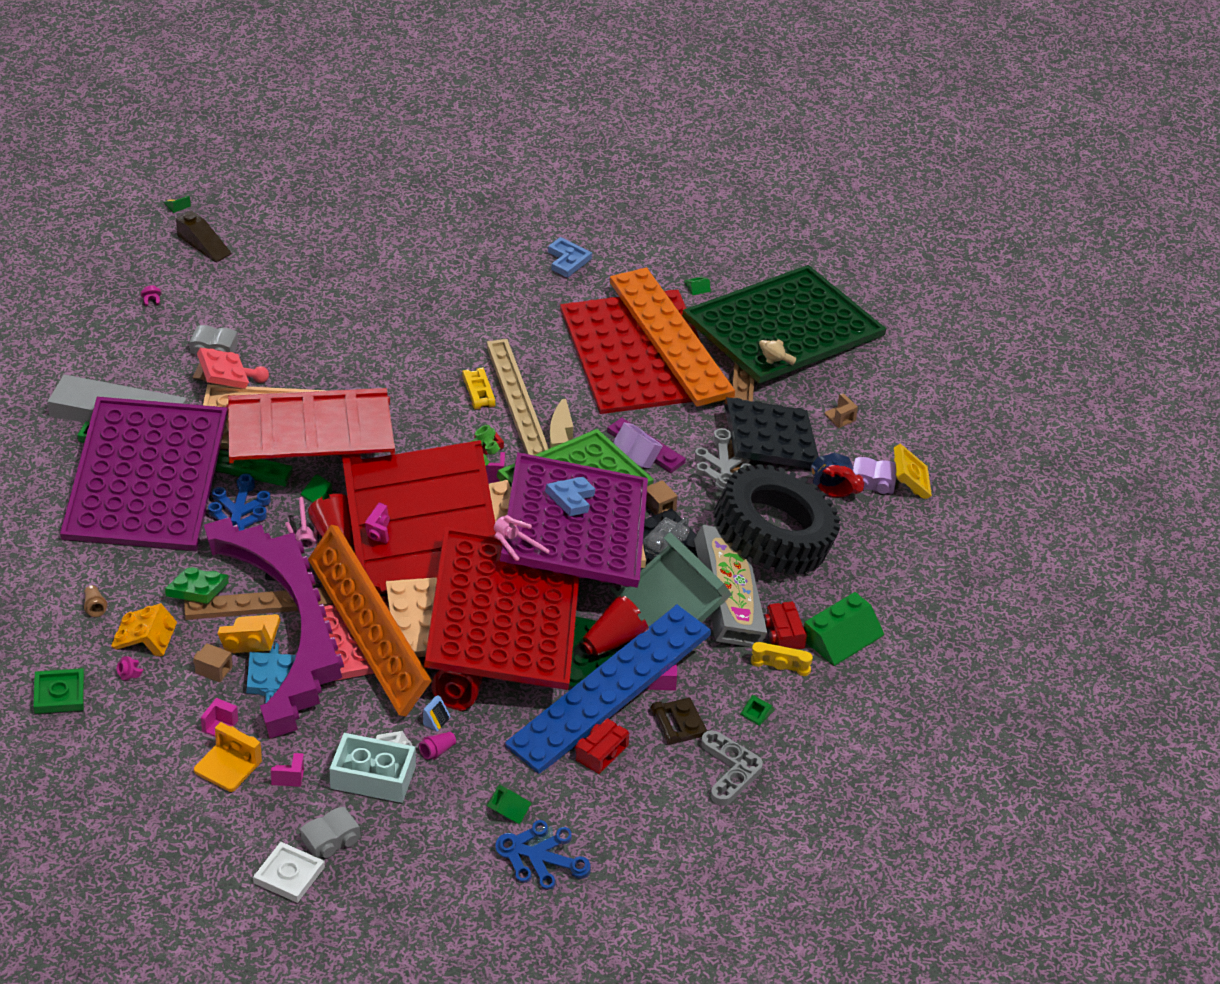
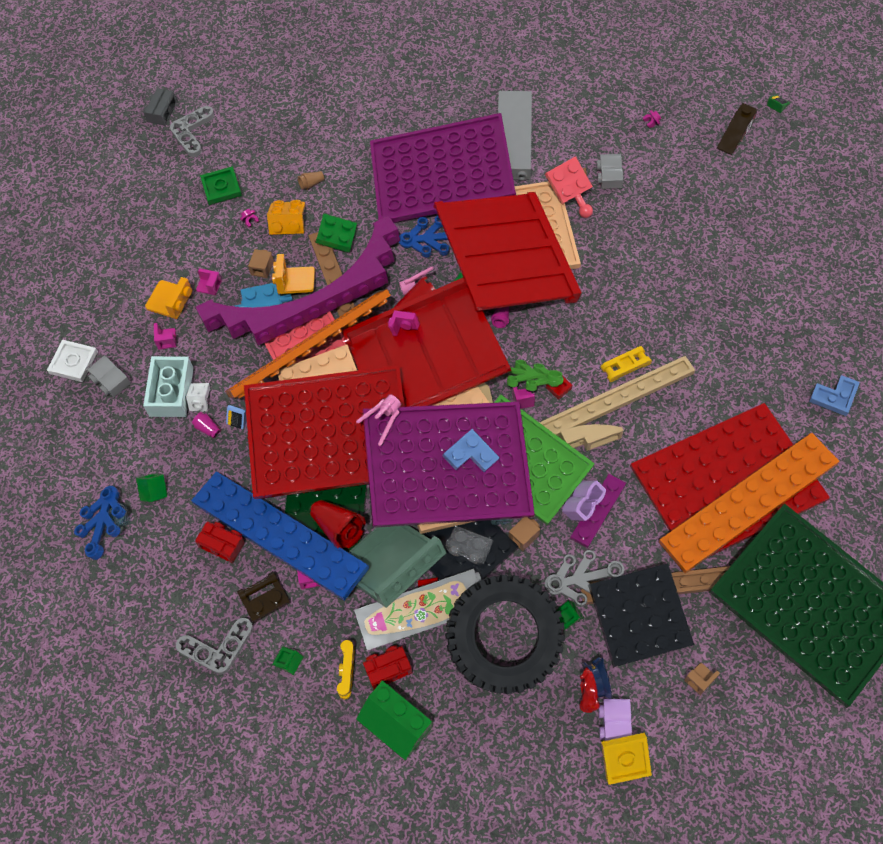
camera: 85 degrees right, 20 degrees up
(698, 285) = (847, 514): green slope -> none
(775, 352) = (745, 596): tan piece -> none

